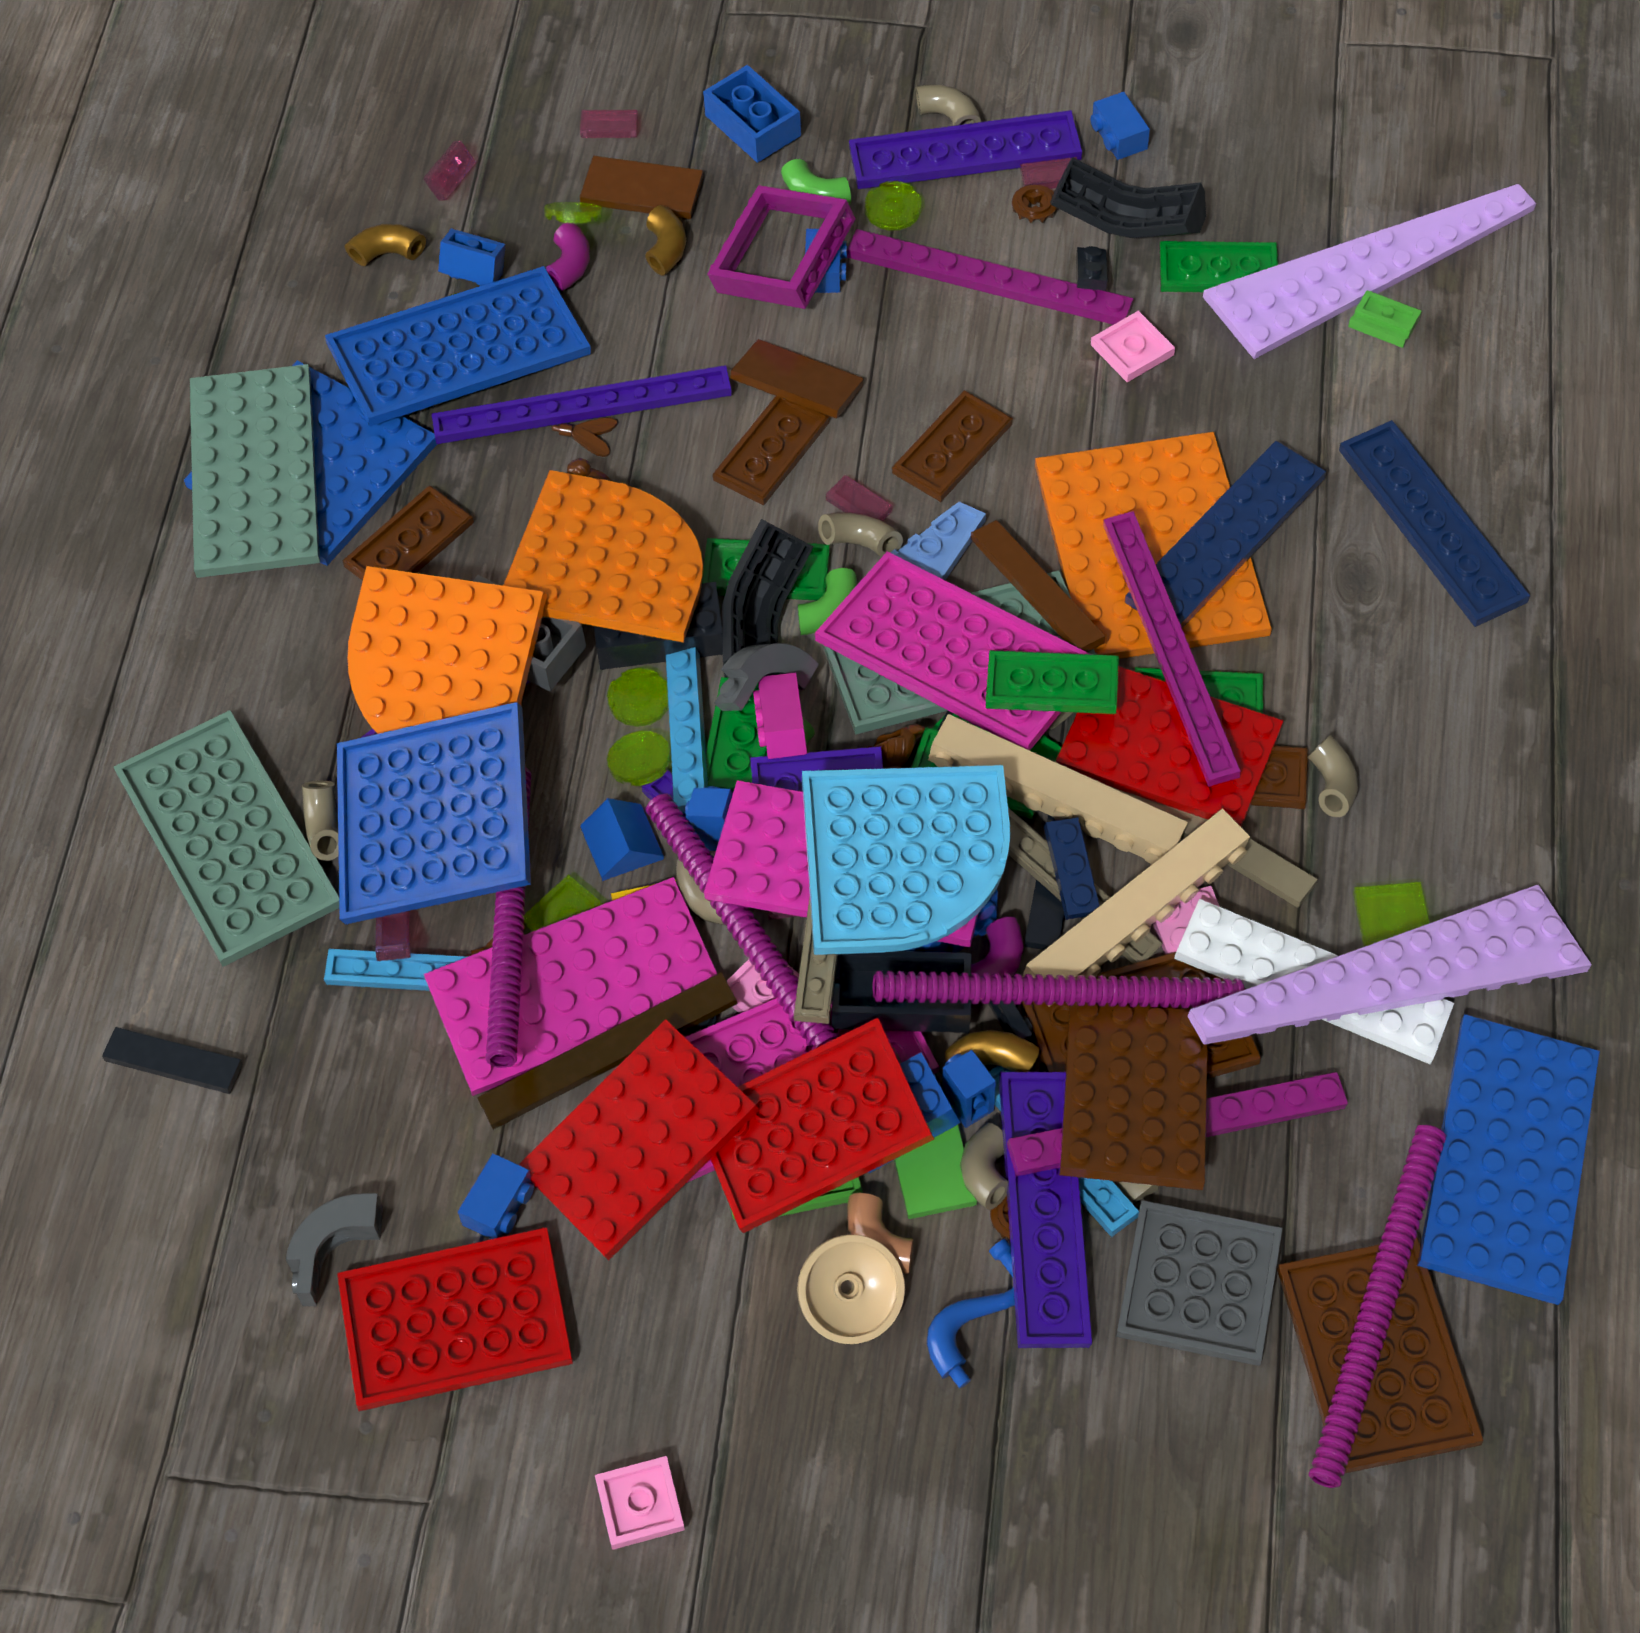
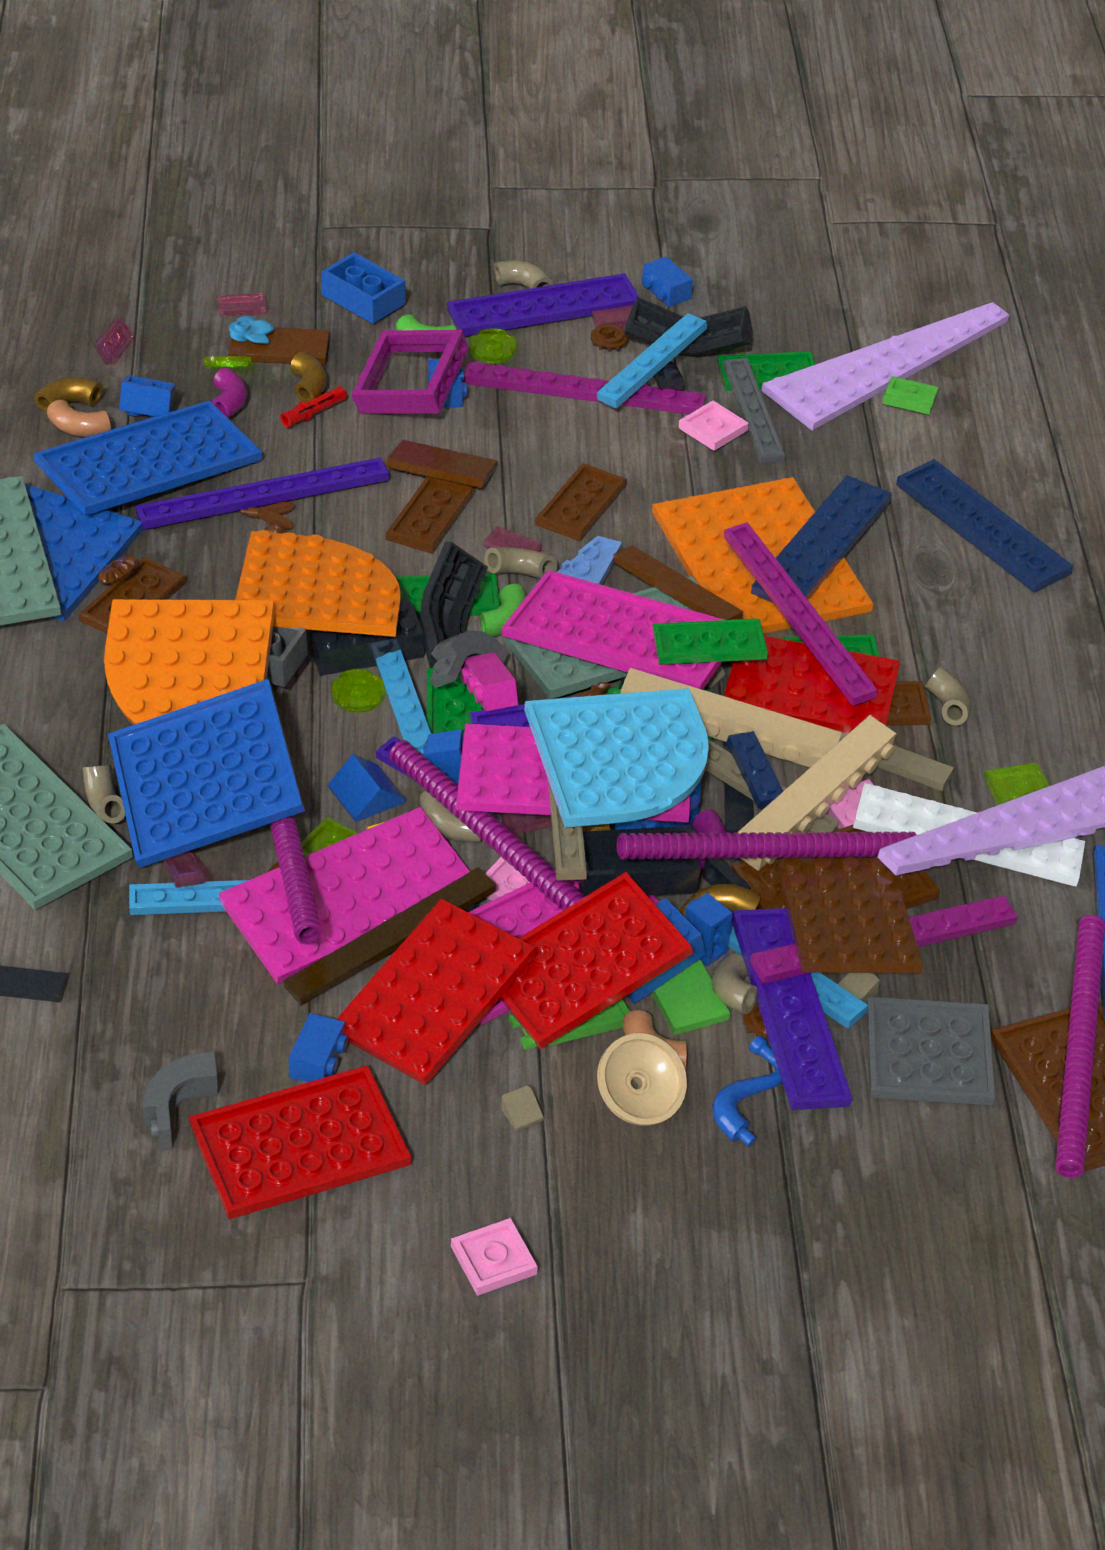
camera: 15 degrees left, 15 degrees down
(387, 287) = (77, 422): none -> nougat cylinder
(395, 503) = (117, 570): none -> reddish brown gear
(609, 166) = (248, 328): none -> dark azure plate
(635, 297) = (292, 416): none -> red pin
(639, 758) = (369, 730): clear neon green tile -> none
(711, 1304) = (521, 1108): none -> dark tan slope
(1073, 250) = (651, 360): none -> dark azure plate
(1186, 328) = (754, 410): none -> dark grey tile

